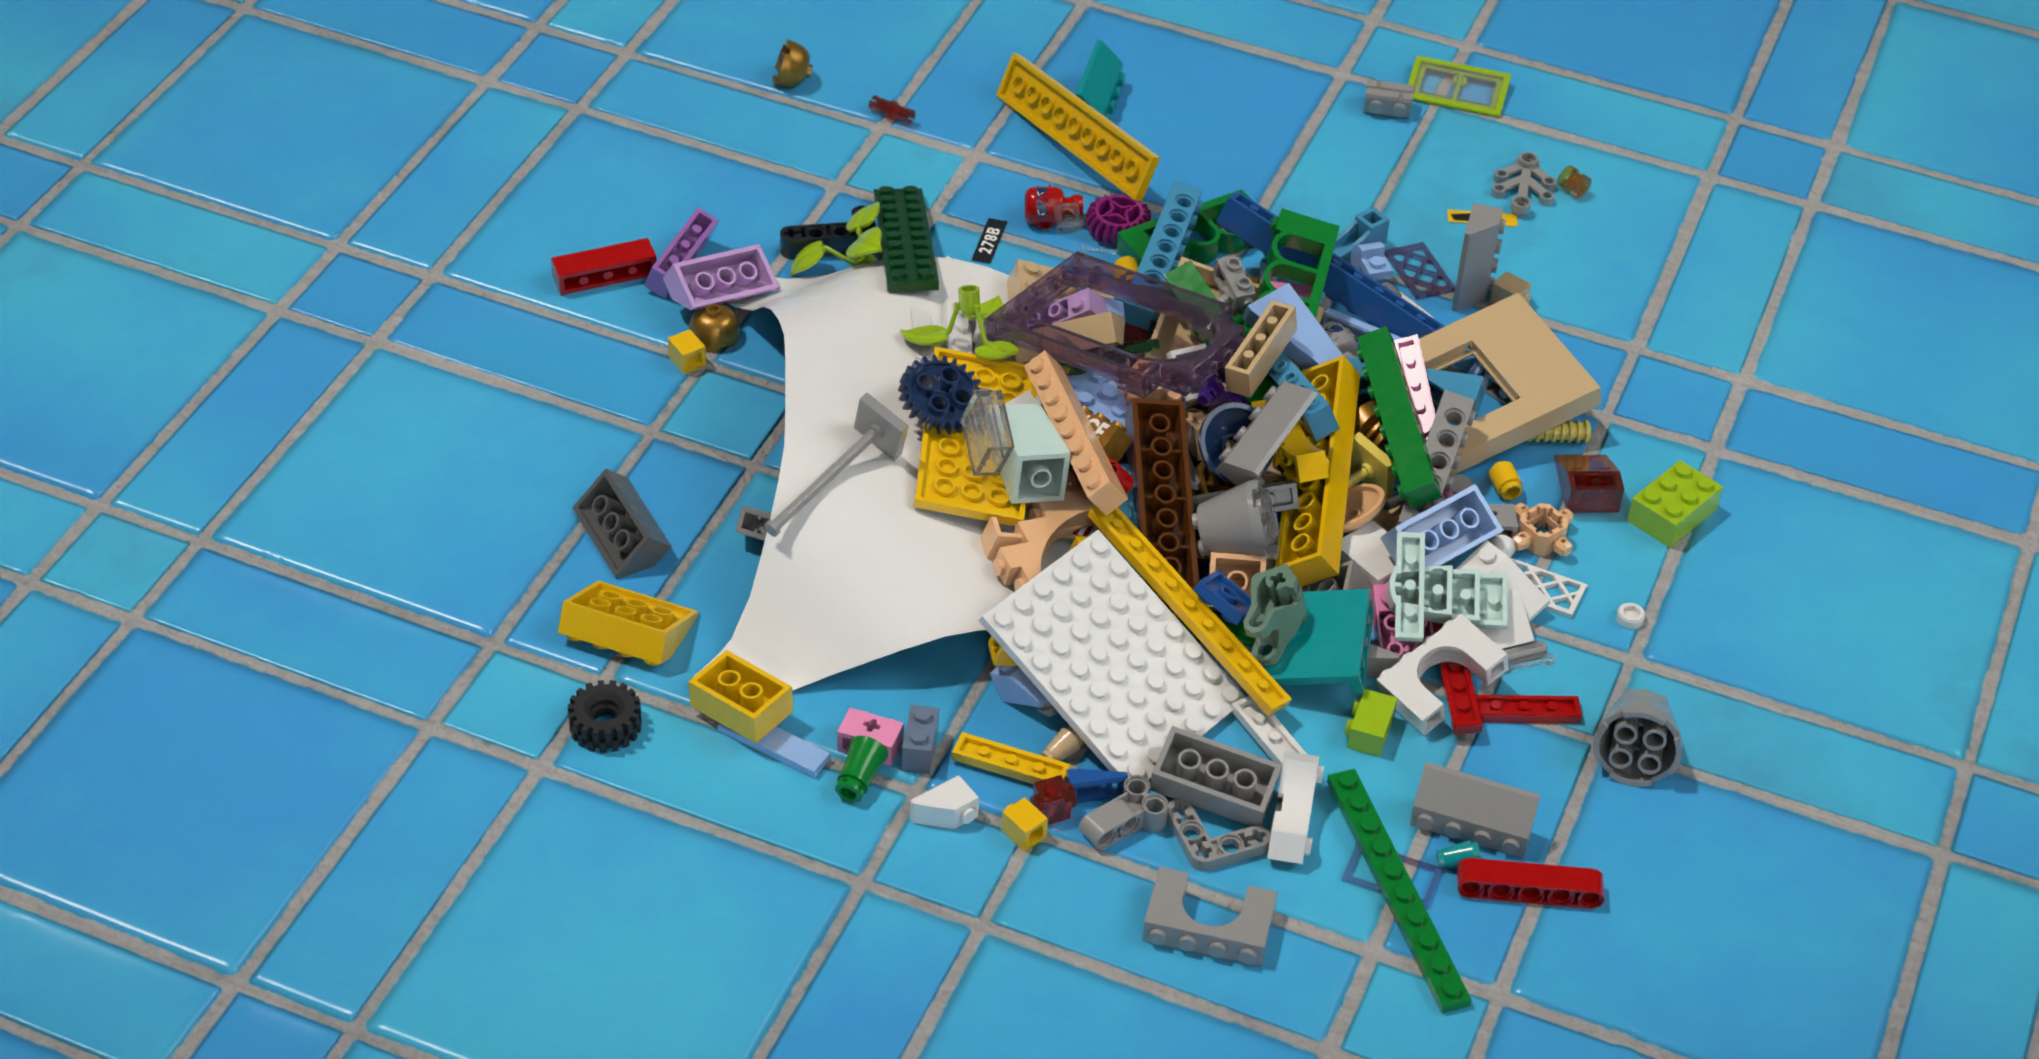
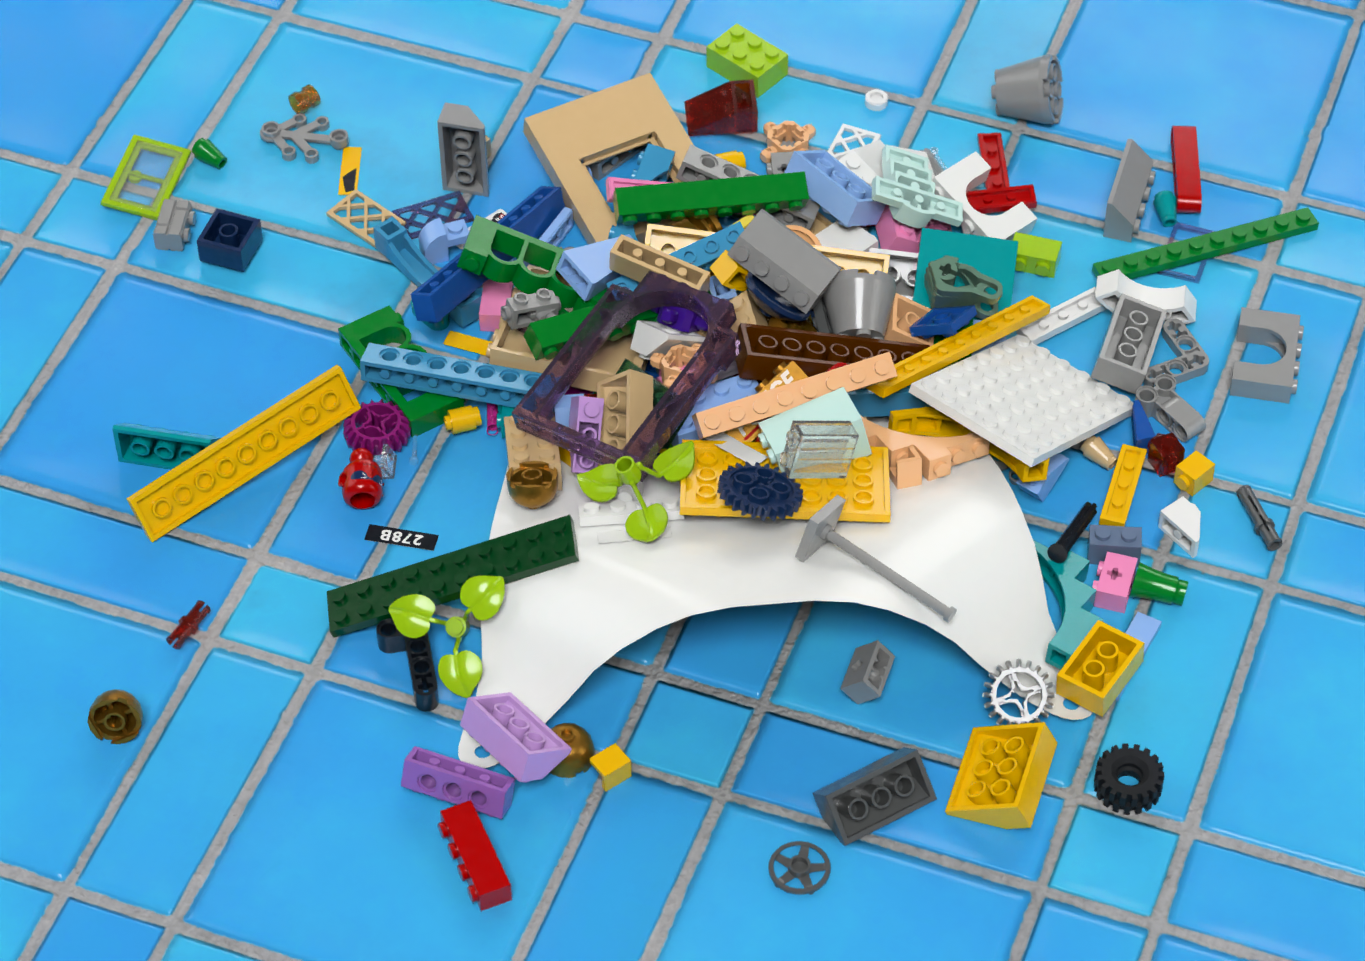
camera: 90 degrees left, 5 degrees up
(552, 474) = (799, 867): none -> dark grey wheel
(715, 629) = (1011, 673): none -> gear
(881, 693) = (1074, 601): none -> teal arch
(938, 700) = (1059, 551): none -> black axle
(961, 876) = (1263, 525): none -> dark grey pin
(994, 271) = (532, 484): none -> pearl gold cylinder
(1363, 127) = (229, 240): none -> dark blue brick
(1429, 211) = (345, 204): none -> tan window
(1492, 121) = (209, 153): none -> green cone

